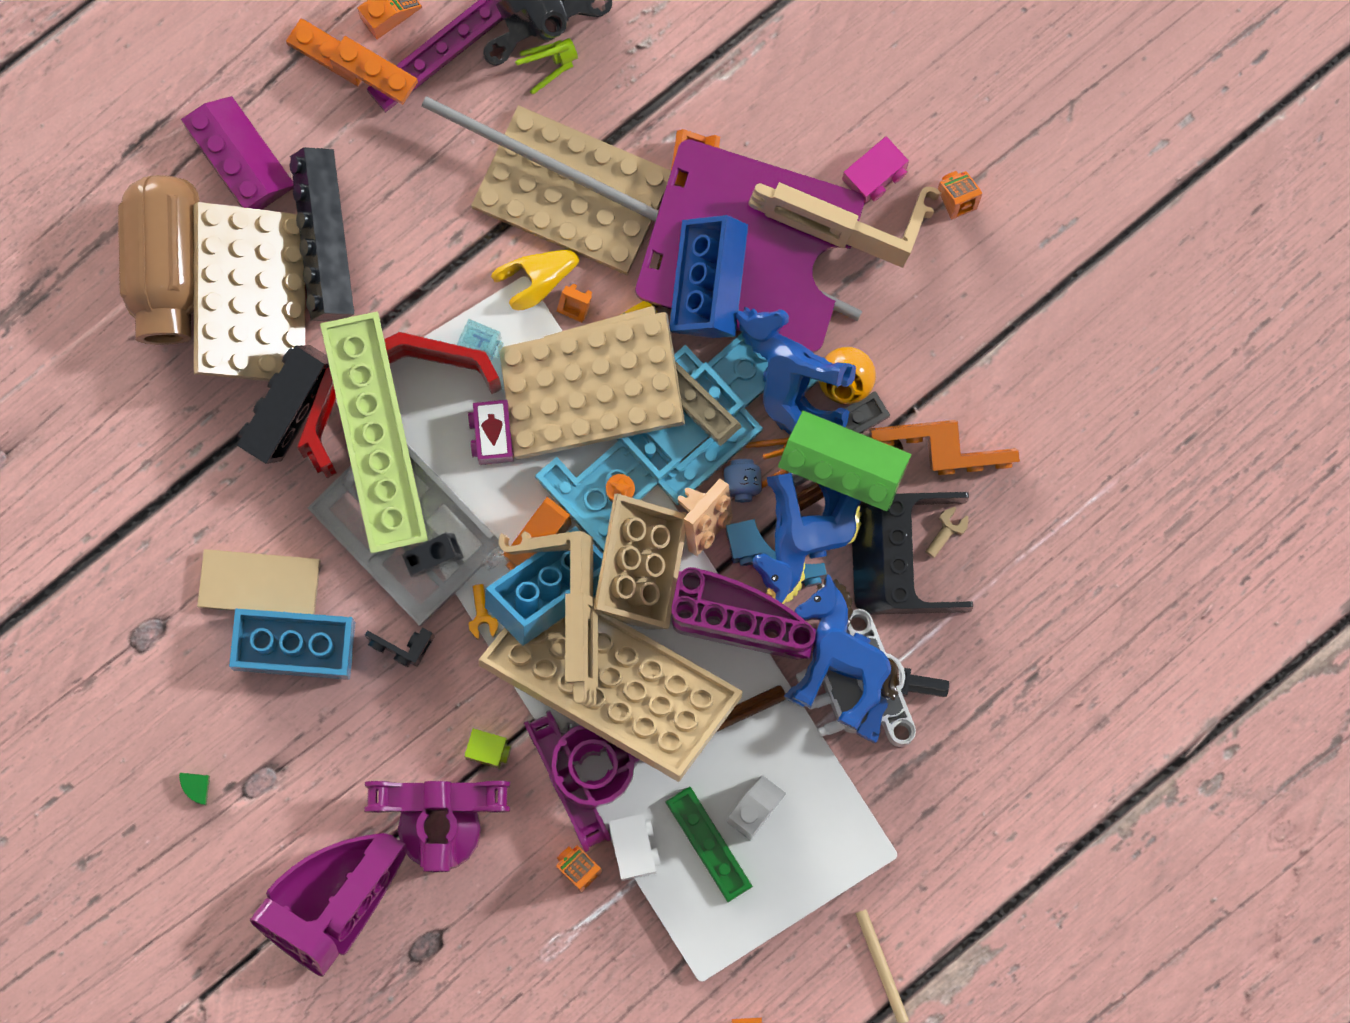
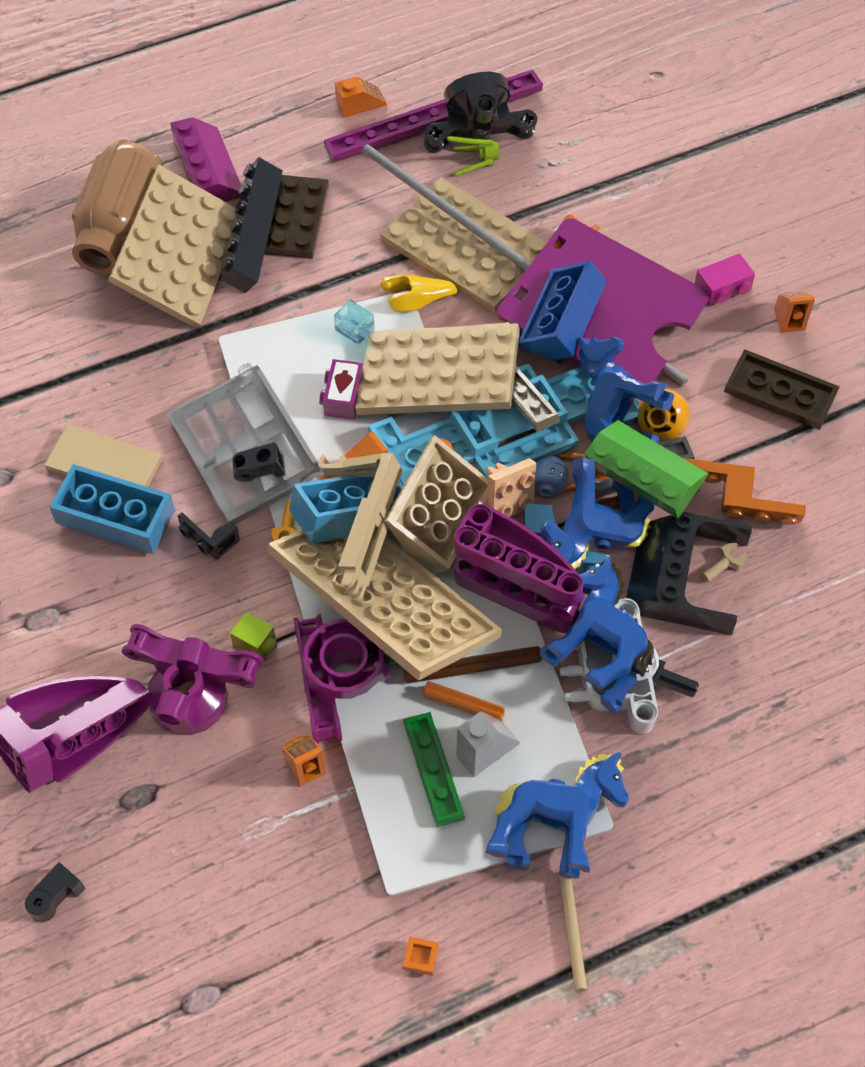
camera: 15 degrees right, 20 degrees down
(285, 406) = (177, 324): black brick -> none
(352, 61) = (319, 118): orange bracket -> none
(368, 201) = (297, 216): none -> dark brown plate
(374, 432) = (239, 353): yellowish green plate -> none
(397, 347) = (260, 311): red panel -> none
(574, 303) = (443, 315): orange tile -> none
(633, 847) = (360, 750): white brick -> none
(728, 766) = (461, 700): none -> orange axle
(839, 225) = (684, 300): tan hinge -> none
(842, 854) = (558, 807): none -> blue animal
(966, 300) = (781, 389): none -> dark brown plate

